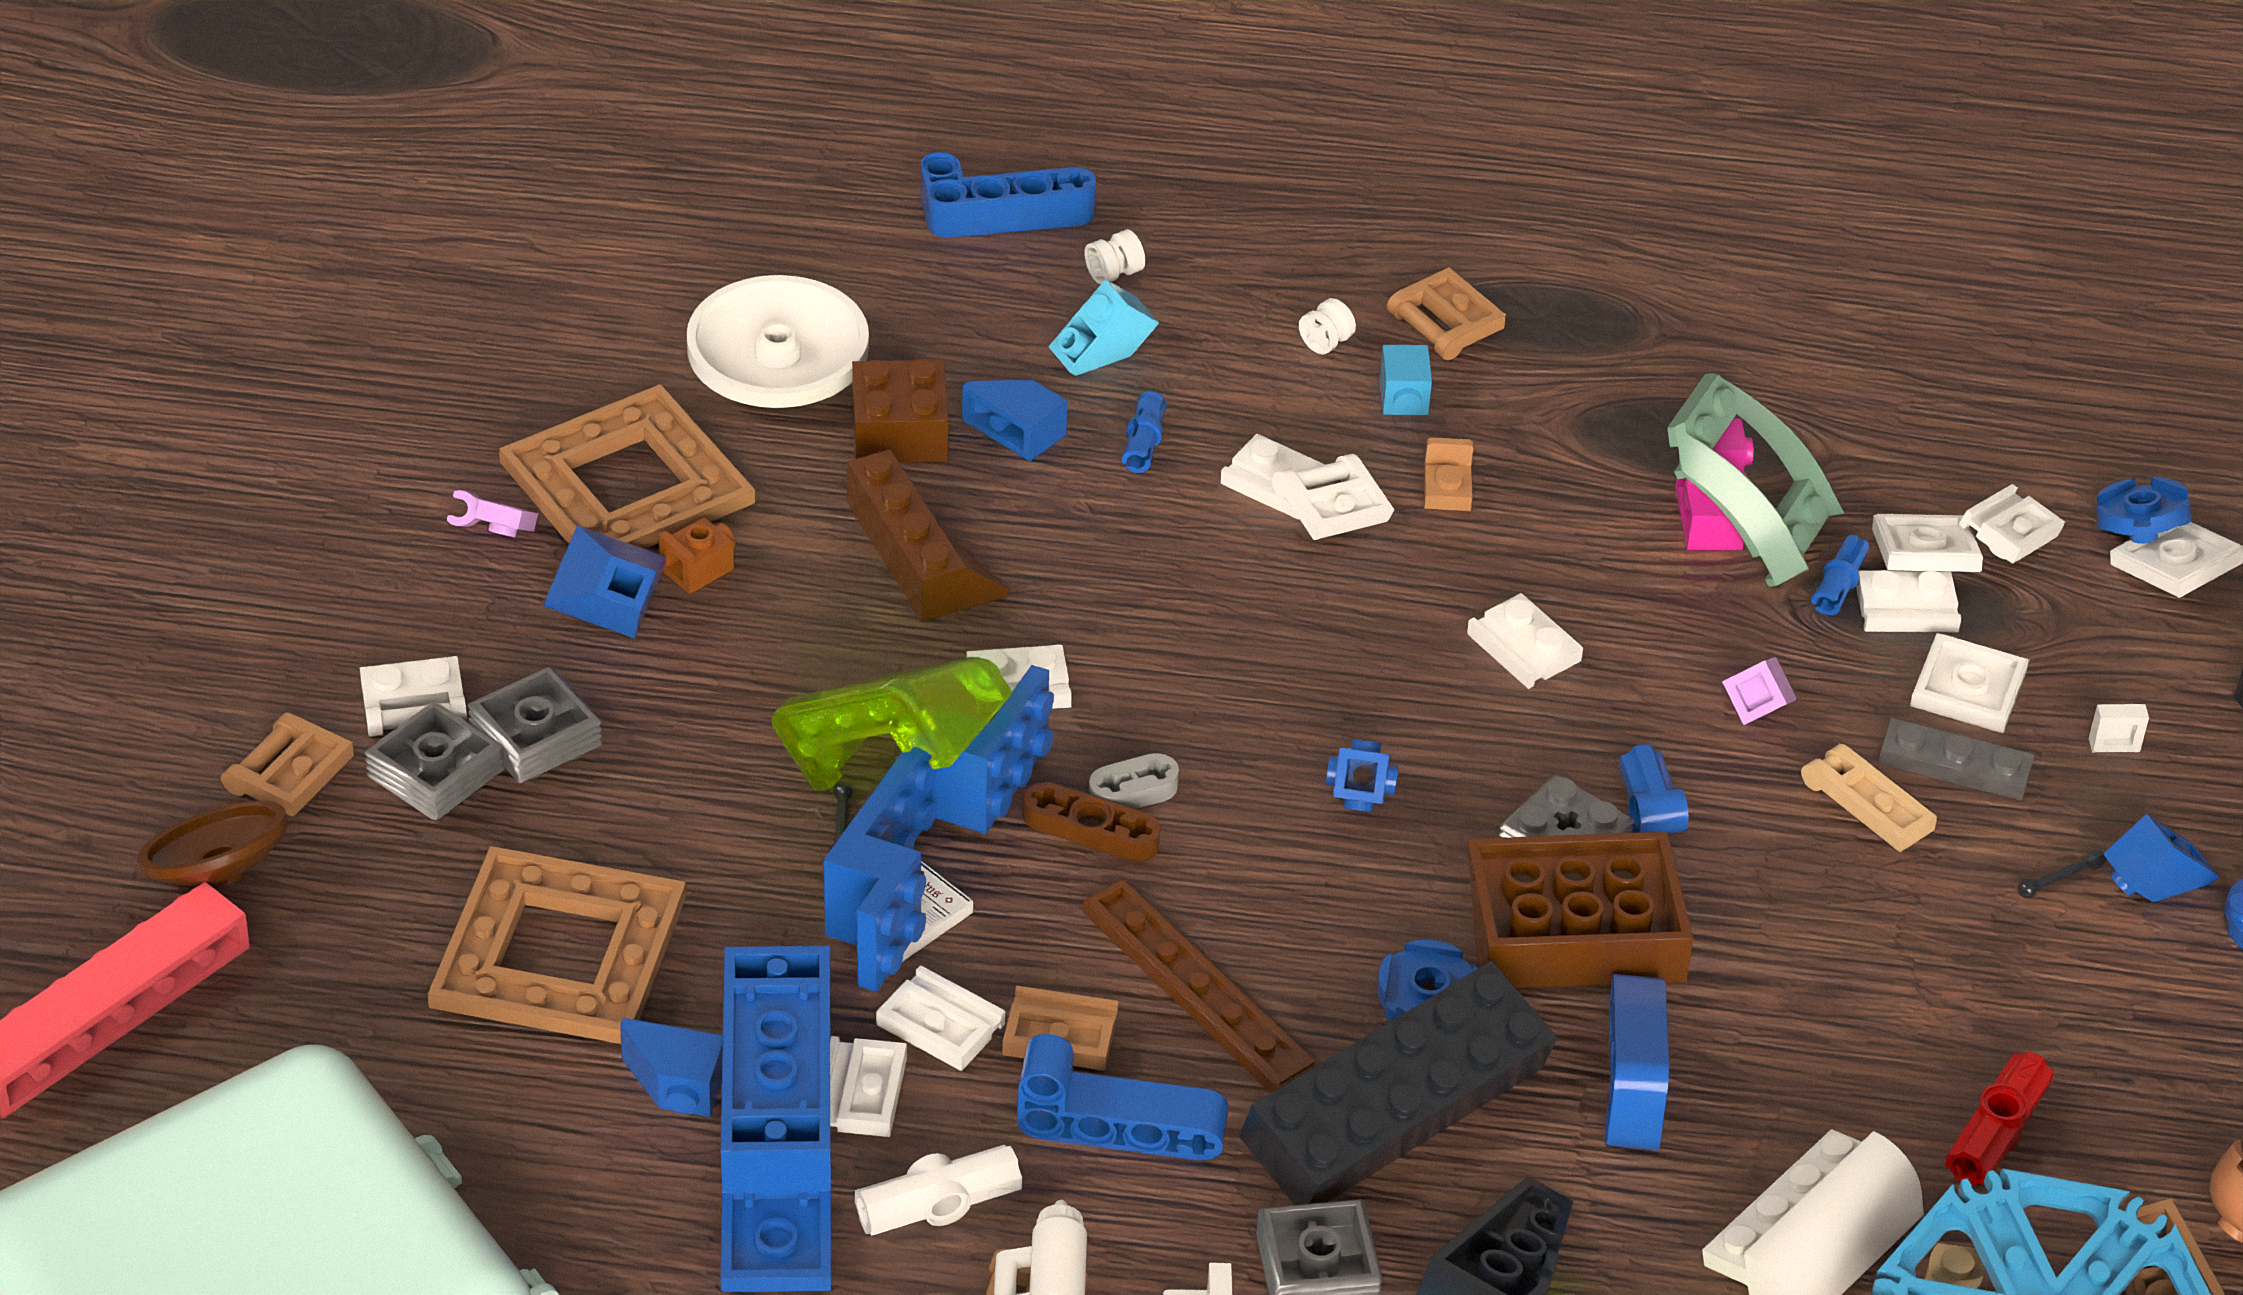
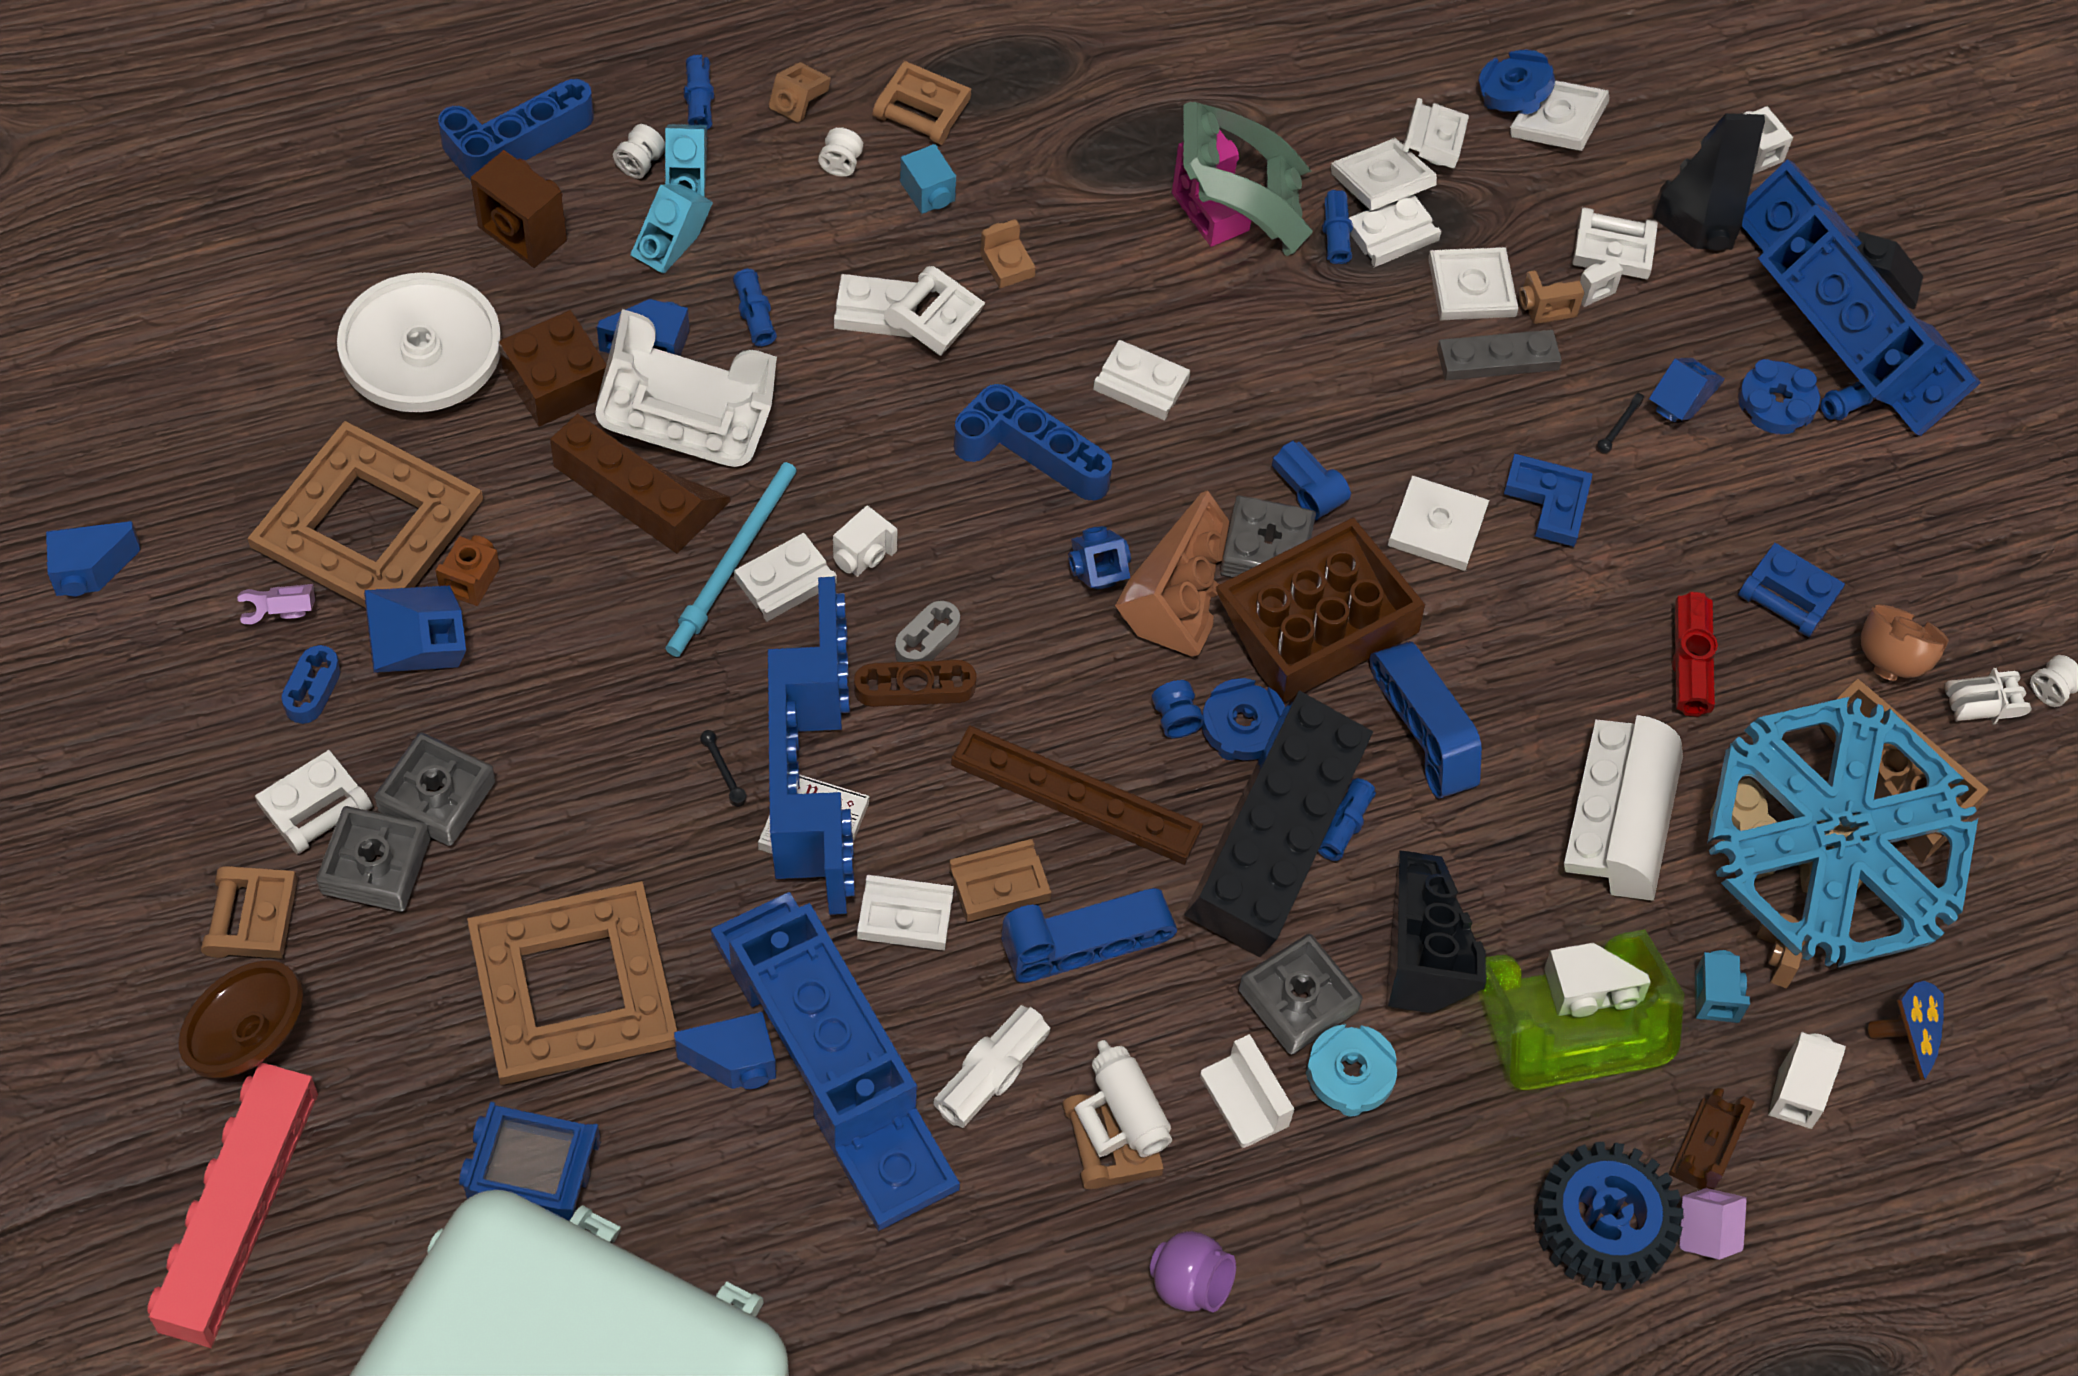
camera: 30 degrees left, 15 degrees up
(340, 411) = (89, 556): none -> blue slope
(420, 1072) = (531, 1157): none -> window
(479, 597) = (318, 688): none -> blue beam
(865, 1085) = (889, 995): white plate -> none
(921, 707) = (749, 655): clear neon green windscreen -> none
(953, 259) = (519, 208): none -> reddish brown brick
(1004, 478) = (683, 400): none -> white windscreen
(1004, 626) = (694, 616): none -> medium azure bar
(1118, 673) = (864, 542): none -> white brick
(1160, 275) = (686, 156): none -> medium azure slope
(1212, 228) = (698, 91): none -> blue pin
(1315, 254) = (795, 88): none -> medium nougat bracket
(1348, 619) = (1081, 468): none -> blue beam
(1359, 946) = (1176, 705): none -> blue wheel
(1422, 840) = (1174, 585): none -> nougat wedge
(1483, 1121) = (1347, 819): none -> blue pin
(1759, 690) = (1336, 355): lavender panel -> none
(1778, 889) = (1438, 523): none -> white plate
(1870, 796) = (1459, 415): tan plate -> none
(1935, 905) = (1560, 491): none -> blue plate
(2049, 726) = (1550, 302): none -> medium nougat bracket
(2174, 703) = (1608, 237): none -> white plate
(2177, 1099) = (1798, 583): none -> blue plate

